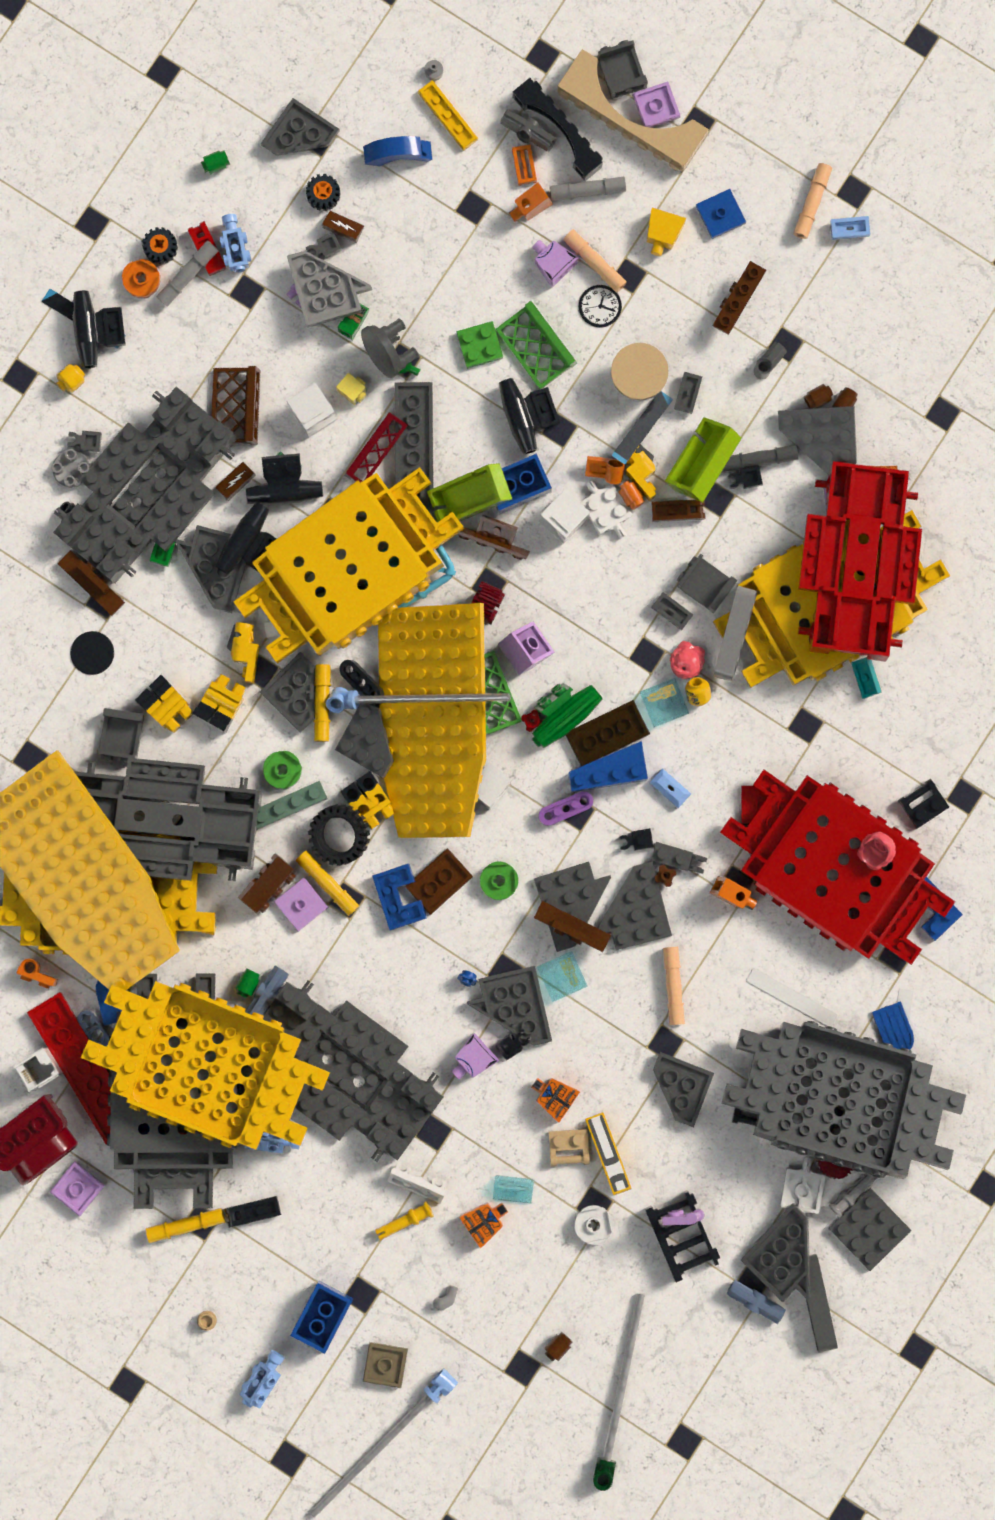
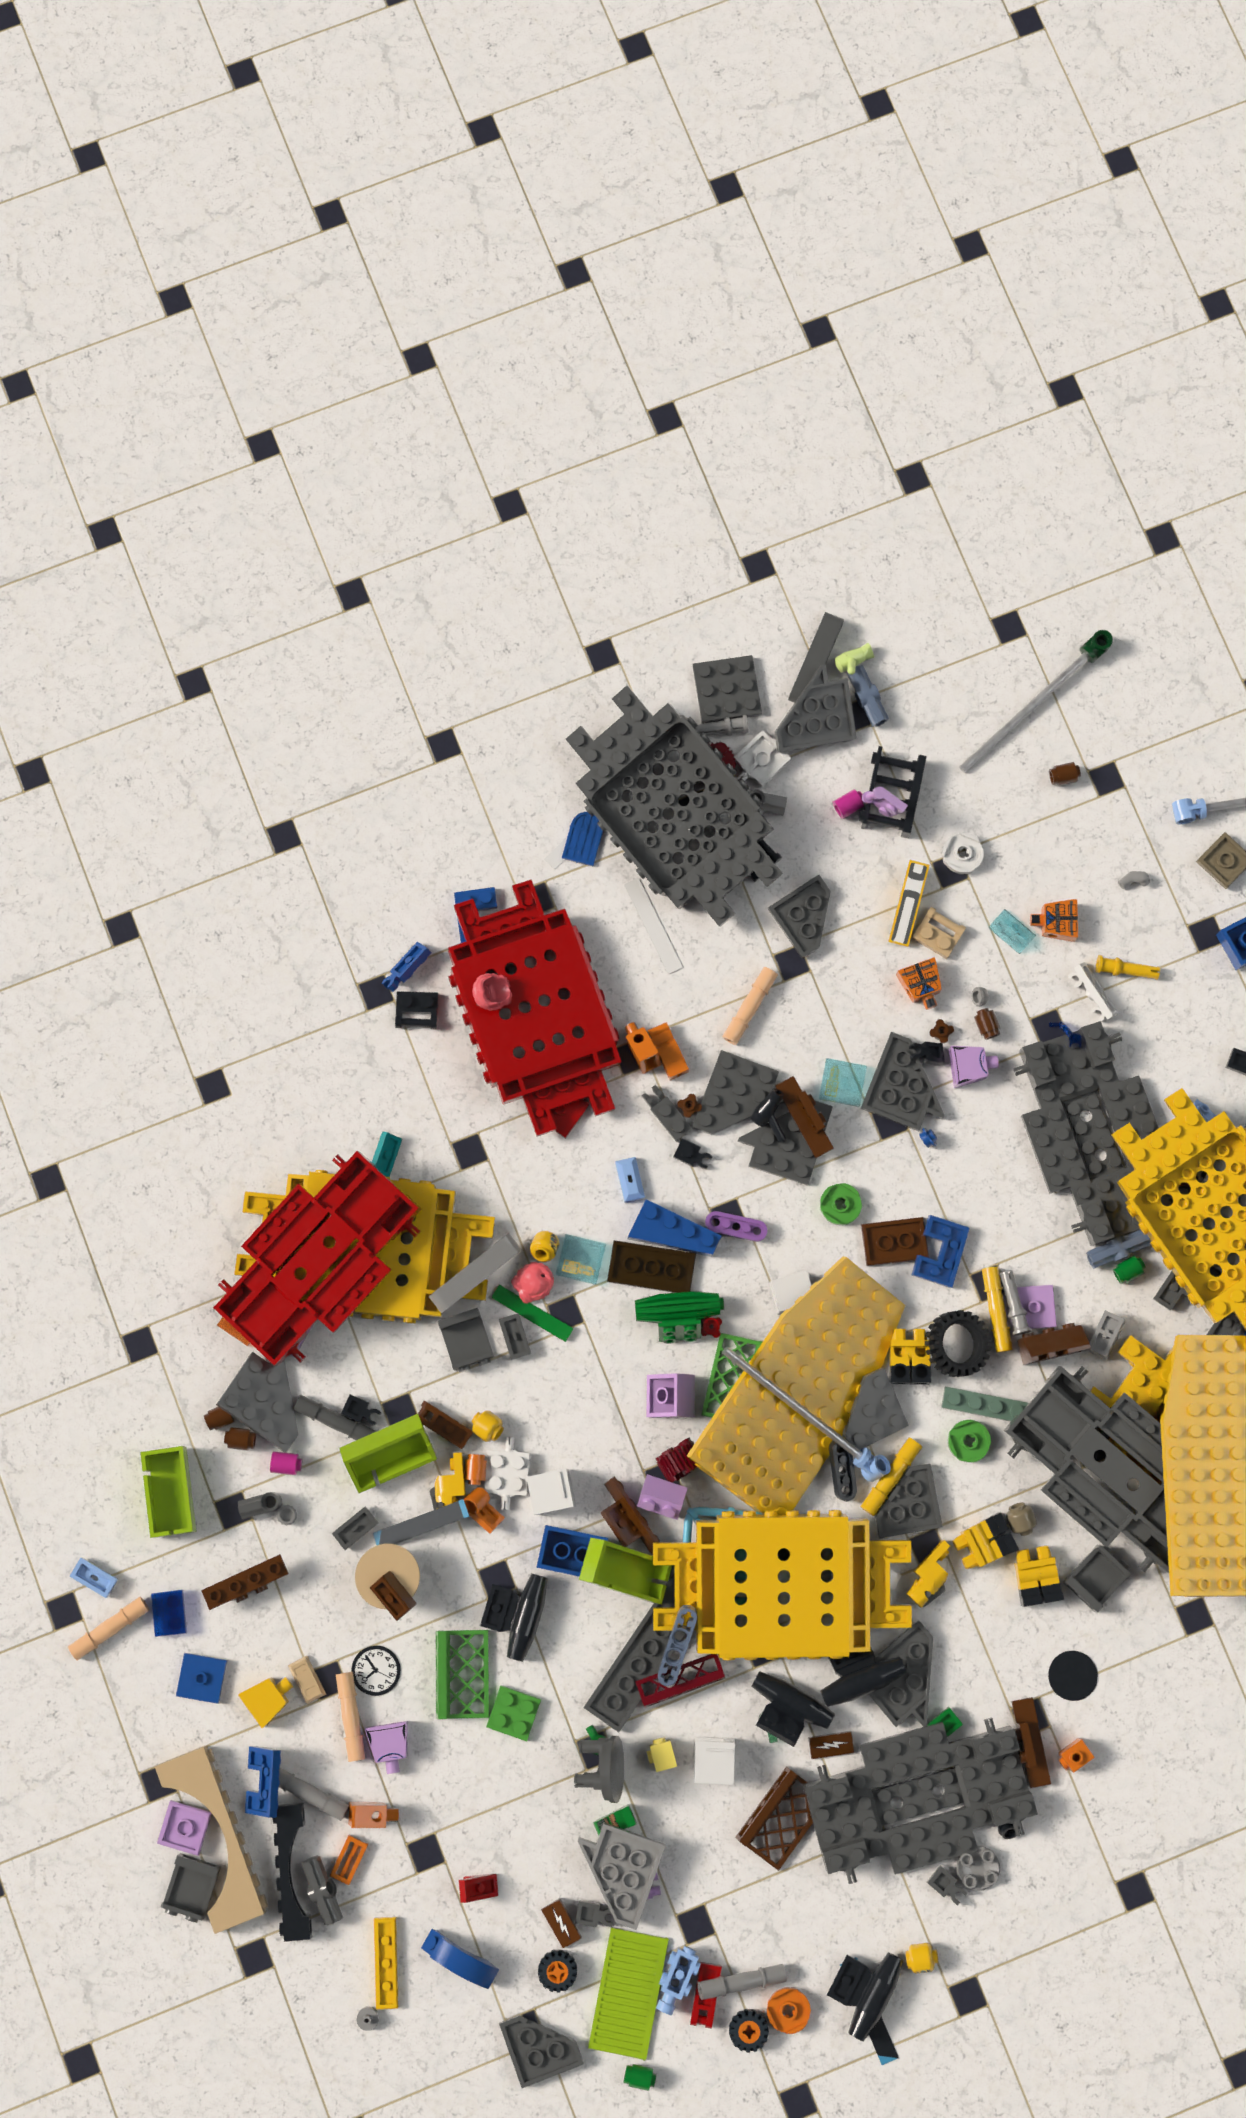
camera: 145 degrees left, 5 degrees down
(52, 595) = (1075, 1755): none -> orange brick
(205, 738) = (1021, 1519): none -> dark tan head
(232, 920) = (1106, 1334): none -> light grey hinge
(262, 212) = (628, 1993): none -> lime window
(309, 888) = (1016, 1313): none -> light grey pin
(397, 467) = (674, 1644): none -> sand blue beam
(410, 1133) = (1073, 1037): none -> clear blue piece
(419, 208) = (478, 1887): none -> red slope
(480, 566) = (662, 1497): none -> lavender slope
(482, 1100) = (987, 1023): none -> reddish brown brick
(503, 1118) = (979, 996): none -> light grey piece
(510, 1065) = (942, 1037): none -> reddish brown plate
(604, 909) = (765, 1113): none -> black piece
(614, 160) = (265, 1800): none -> blue plate
(625, 360) = (393, 1595): none -> reddish brown slope
(644, 265) = (307, 1679): none -> tan tile
(645, 531) = (487, 1426): none -> yellow head
(671, 638) = (532, 1313): none -> green sticker
(710, 1201) = (848, 803): none -> dark pink brick
(711, 906) = (668, 1051): none -> orange piece
(744, 367) = (286, 1515): none -> light grey piece
(771, 1159) = (771, 803): none -> light grey piece
(772, 402) = (285, 1463): none -> dark pink brick
(777, 241) = (169, 1613): none -> clear blue plate
(790, 1322) = (849, 660): none -> yellowish green piece
(842, 322) = (168, 1492): none -> lime piece
(956, 831) = (406, 966): none -> blue plate

